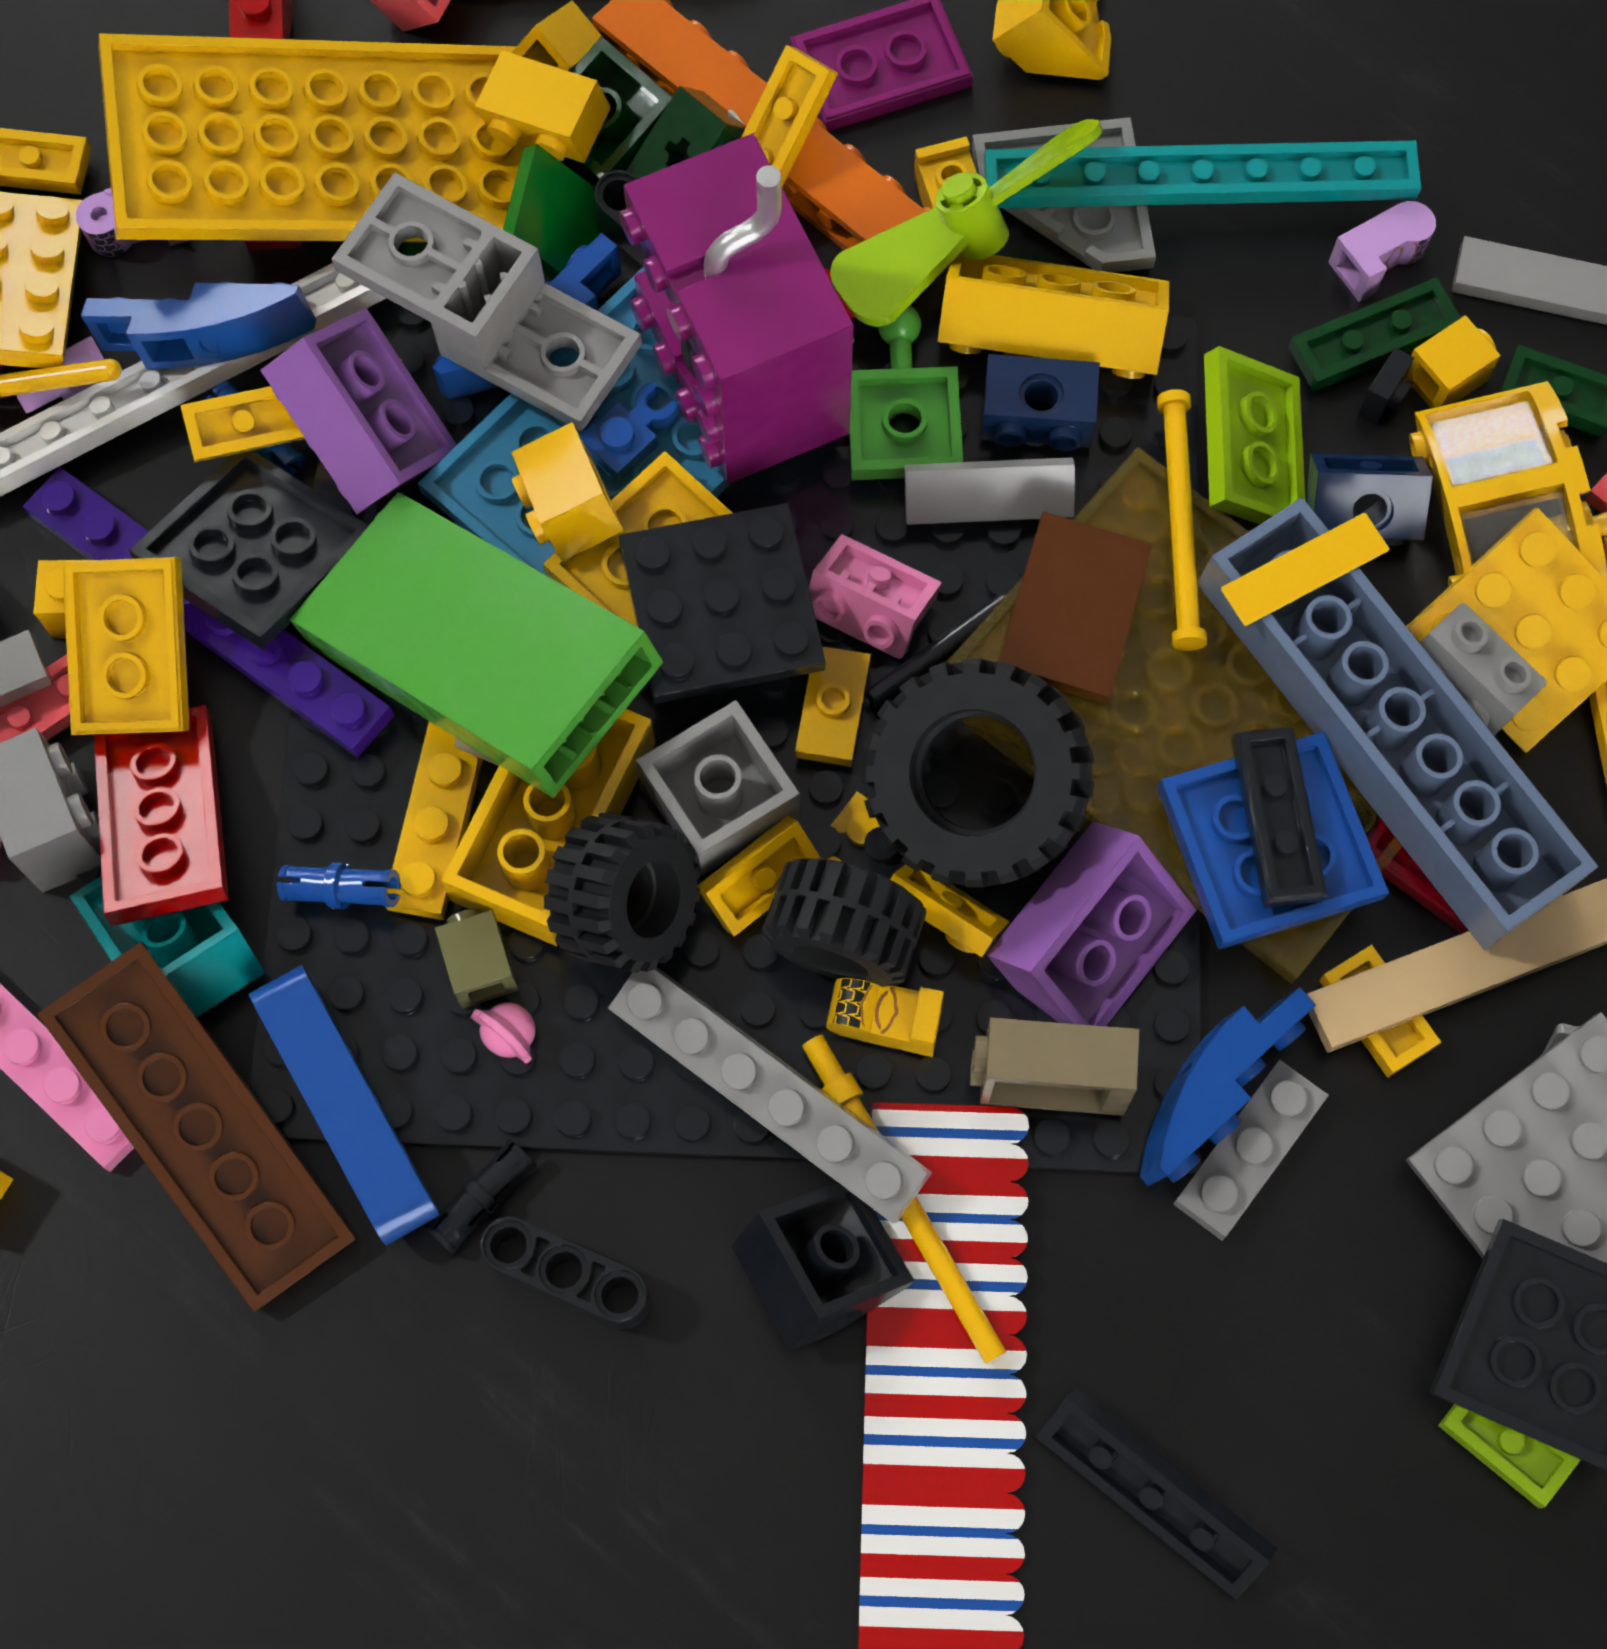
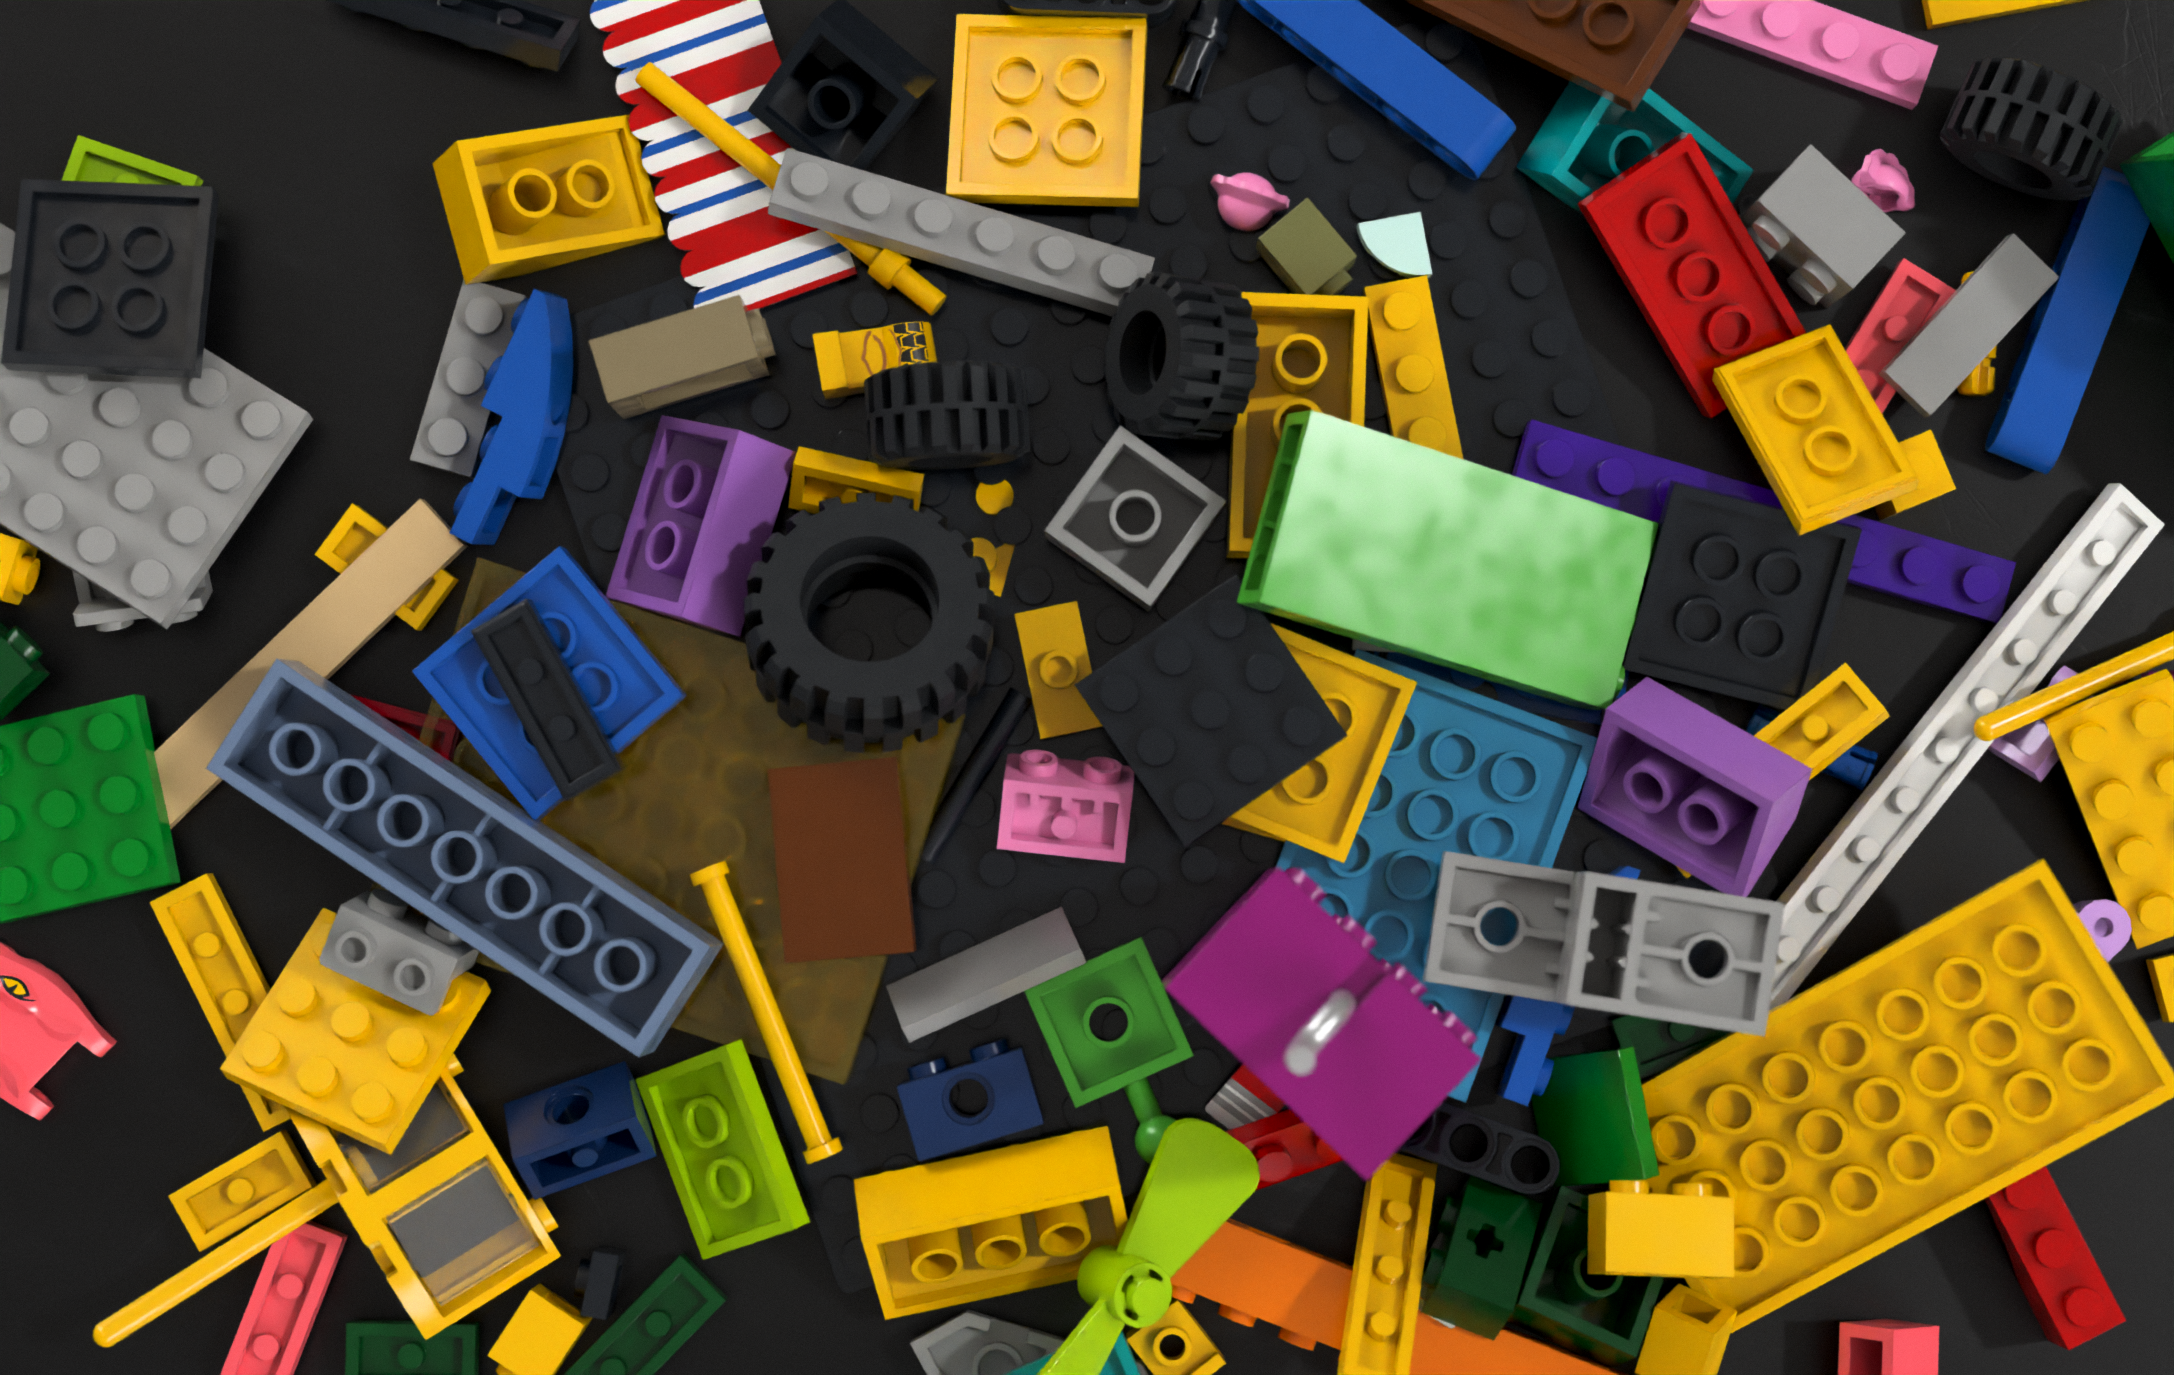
camera: 155 degrees right, 15 degrees up
(209, 328) = (1904, 825): blue slope -> none
(339, 885) = (1478, 271): blue pin -> none
(395, 942) = (1398, 244): none -> light aqua tile
(565, 493) = (1425, 764): yellow brick -> none
(624, 437) = (1401, 873): blue plate -> none
(646, 1176) = (1047, 110): none -> yellow plate
(747, 882) = (1058, 451): yellow plate -> none
(1126, 1277) = (545, 197): none -> yellow slope
(1304, 569) = (607, 972): yellow sticker -> none

